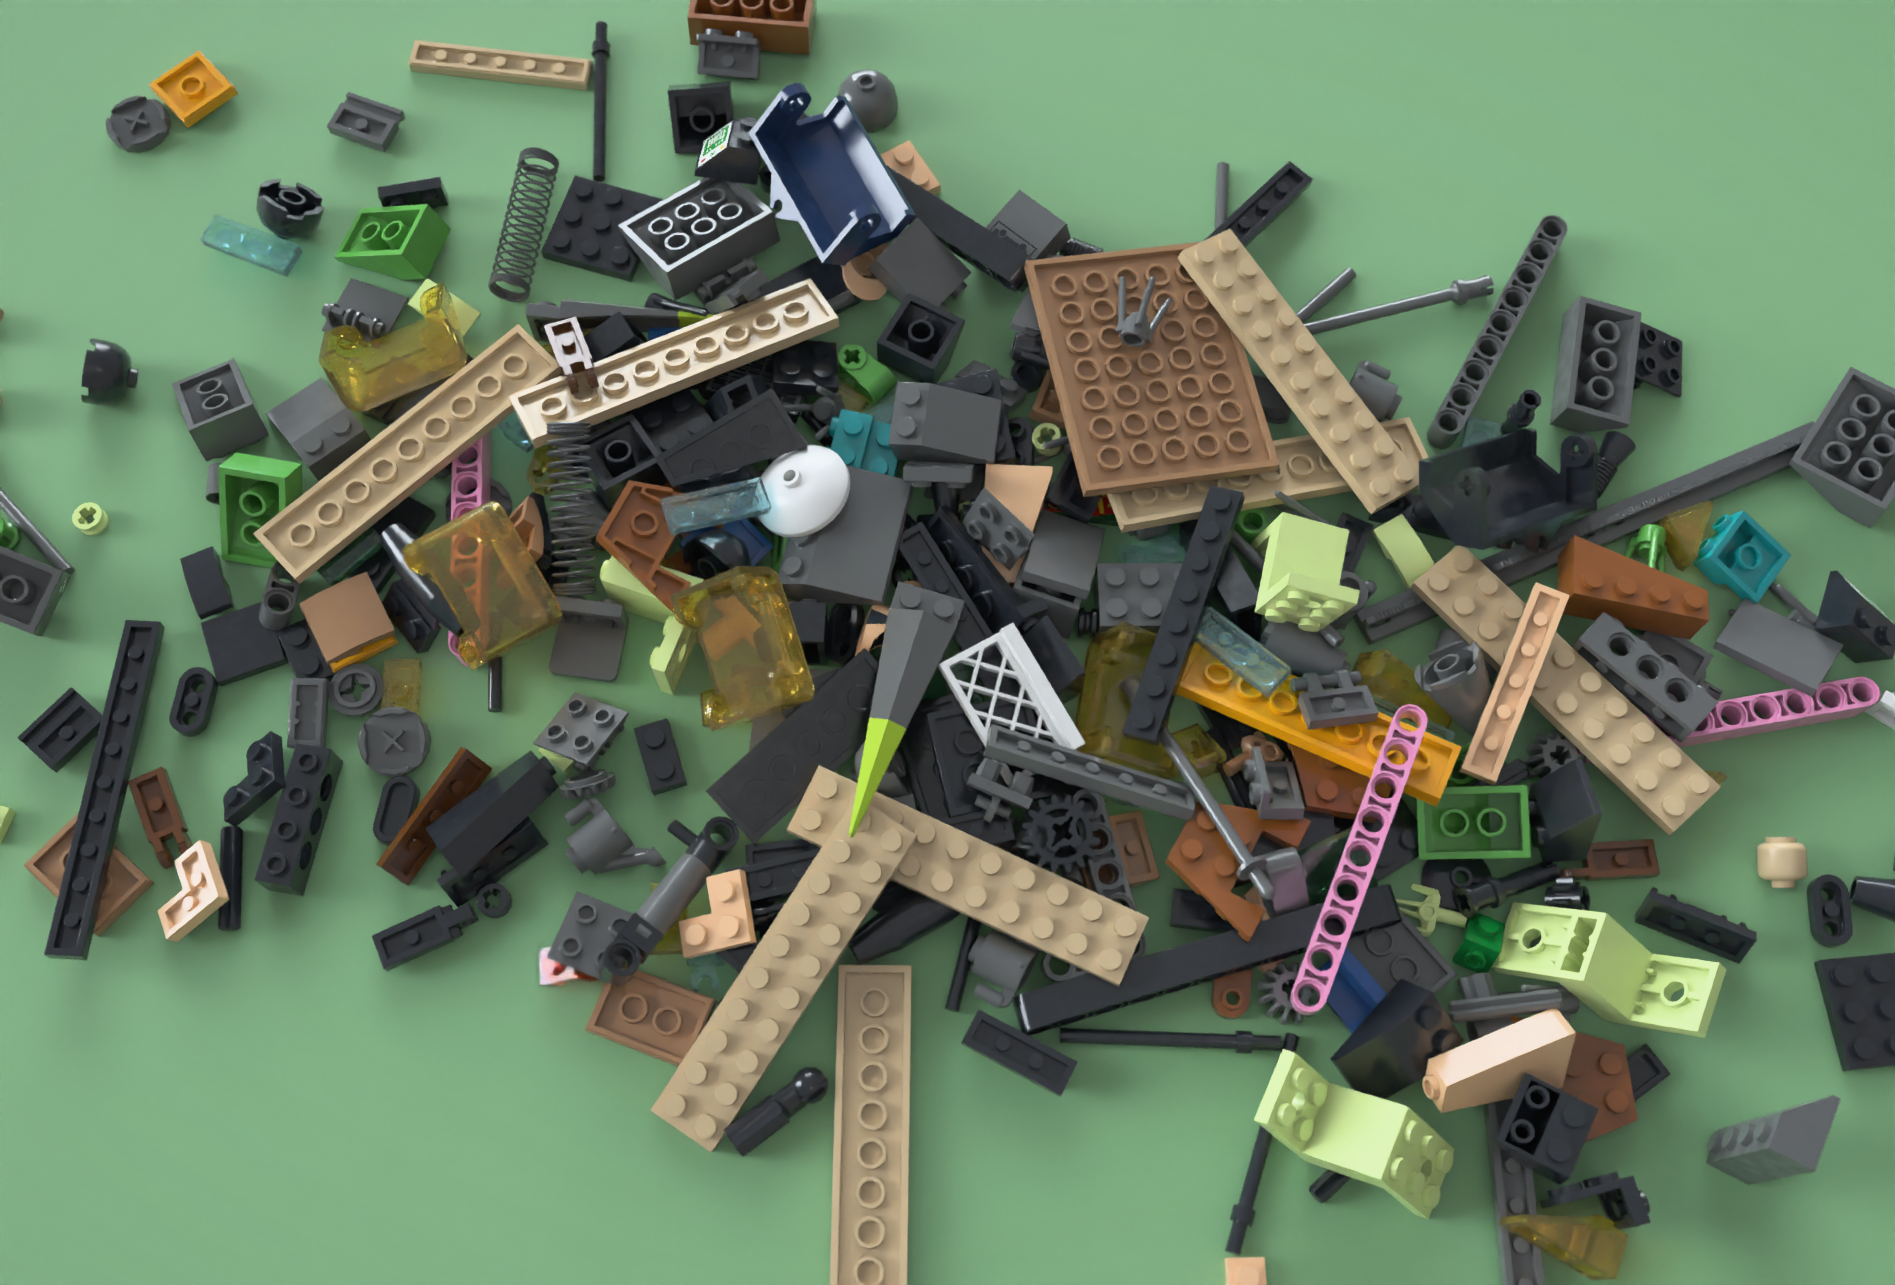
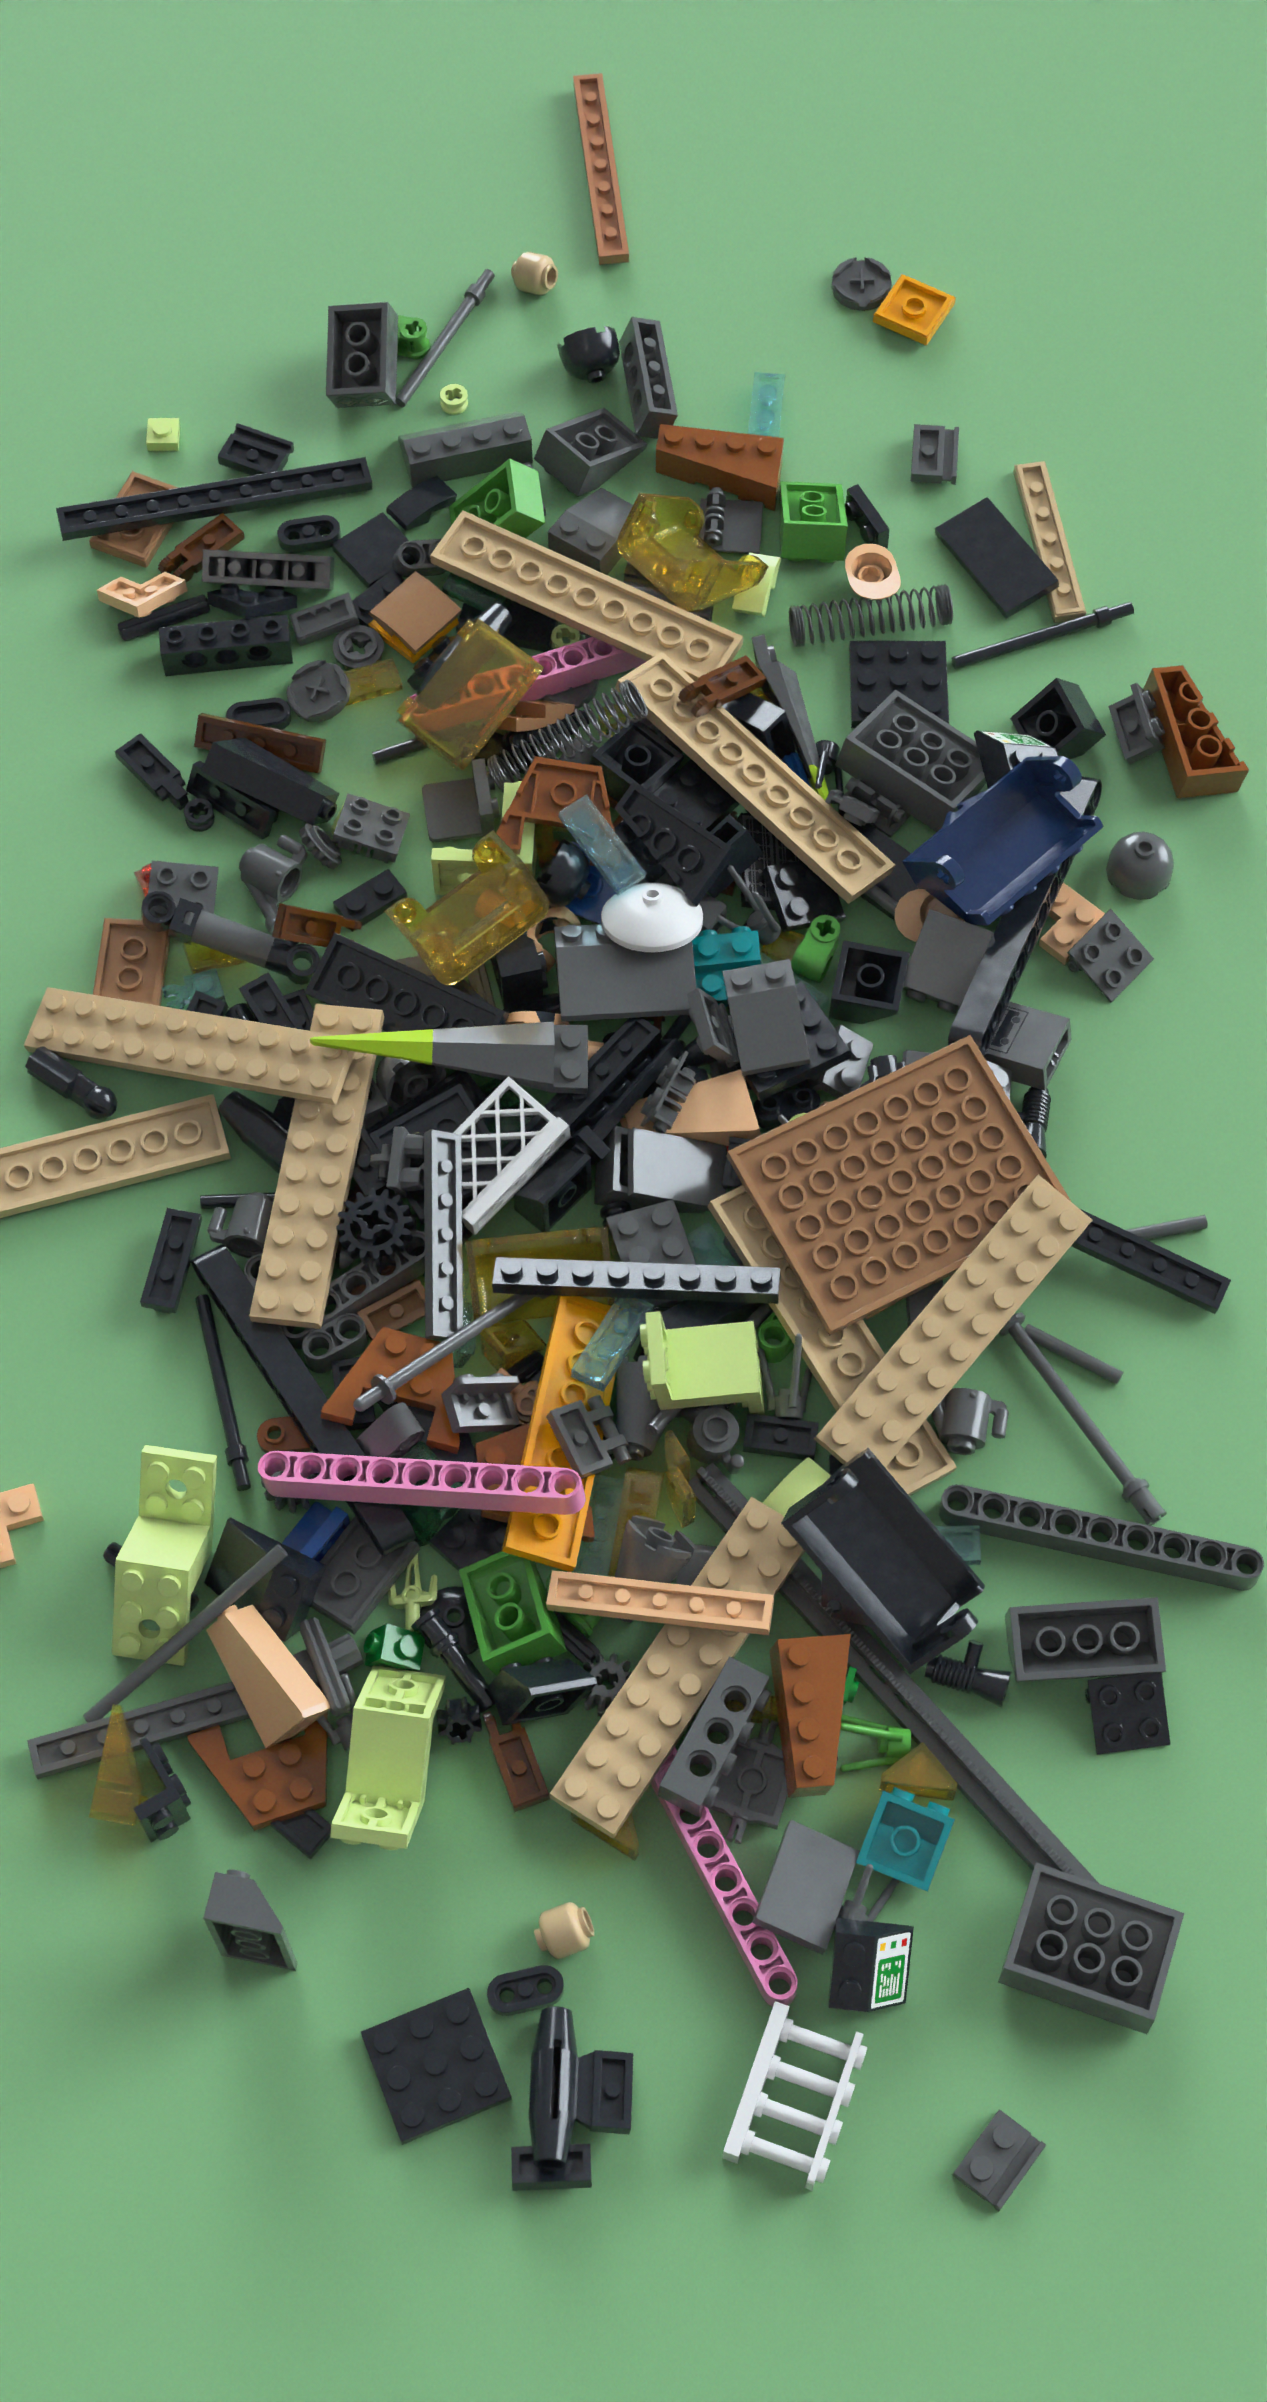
camera: 75 degrees right, 5 degrees down
(157, 521) = (466, 448): none -> dark grey slope
(163, 329) = (647, 376): none -> dark grey brick
(226, 751) = (268, 569): none -> black brick
(289, 210) = (809, 424): black cylinder -> none
(292, 294) = (722, 459): none -> dark orange wedge
(436, 502) = (564, 631): none -> yellowish green bush
(483, 205) = (872, 572): none -> light nougat piece
(502, 108) = (997, 557): none -> black tile
(689, 812) = (310, 925): none -> reddish brown hinge
(728, 923) = (220, 987): light nougat plate -> none
(948, 152) = (1109, 955): none -> dark grey hinge
(1136, 329) = (928, 1149): dark grey plant -> none
(1157, 912) = (332, 1339): none -> dark grey beam
(1243, 1212) = (76, 1490): black bar -> none
(1372, 636) = (676, 1480): none -> clear yellow slope
(1448, 1134) = (186, 1634): none -> dark grey piece
(1522, 412) = (993, 1569): black pin -> none
(1546, 1128) = (212, 1724): black slope -> none
(1695, 926) = (469, 1853): black plate -> none

